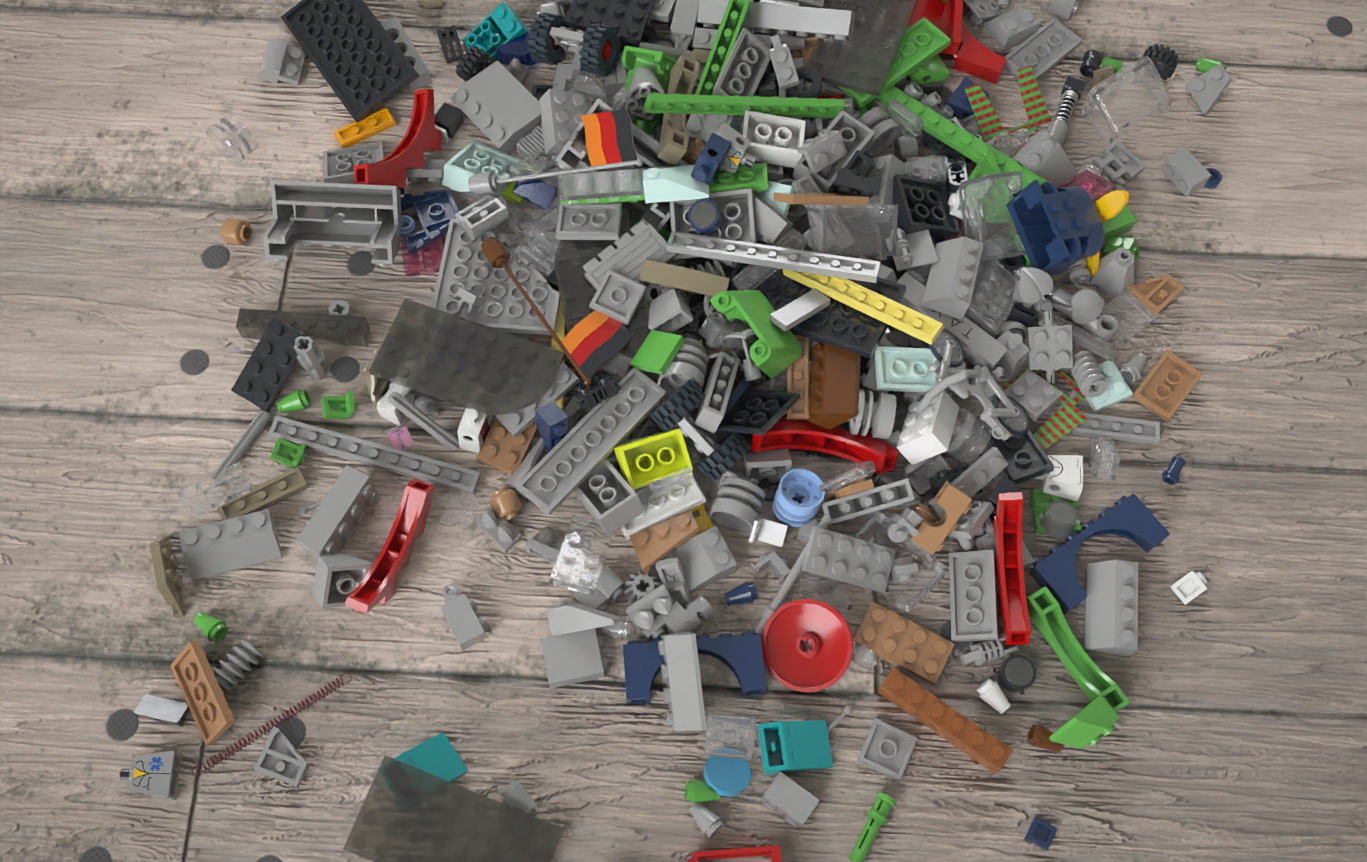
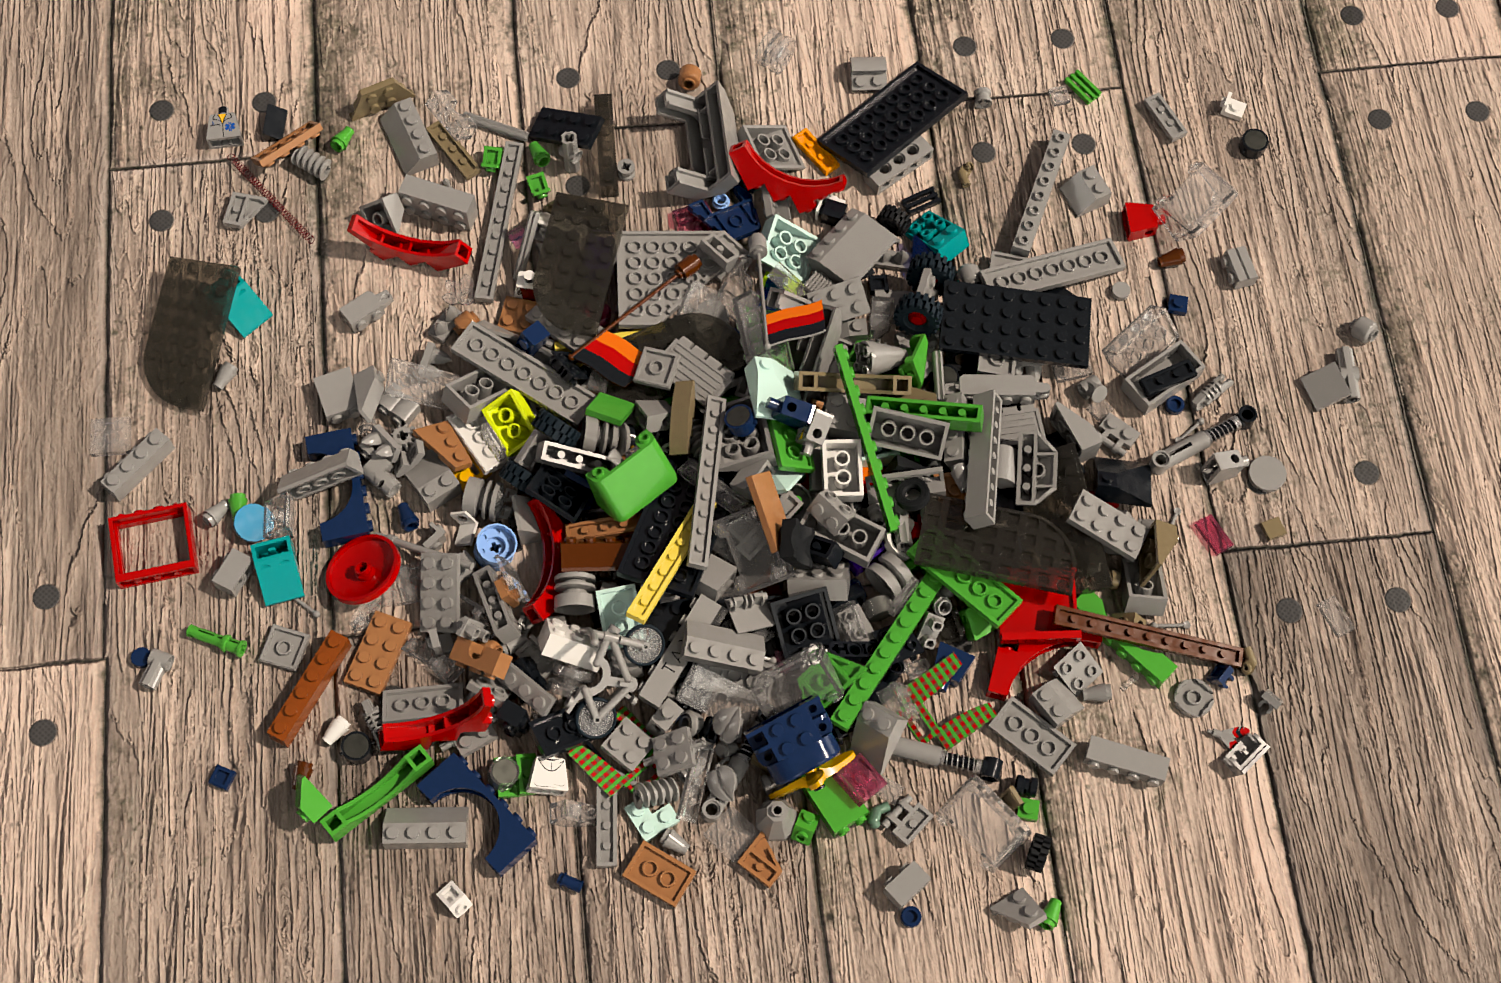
camera: 80 degrees right, 0 degrees up
(470, 297) = (639, 255): light grey tile -> none
(589, 221) = (724, 333): light grey tile -> none
(783, 64) = (926, 468): light grey hinge -> none
(799, 309) = (654, 509): light grey tile -> none

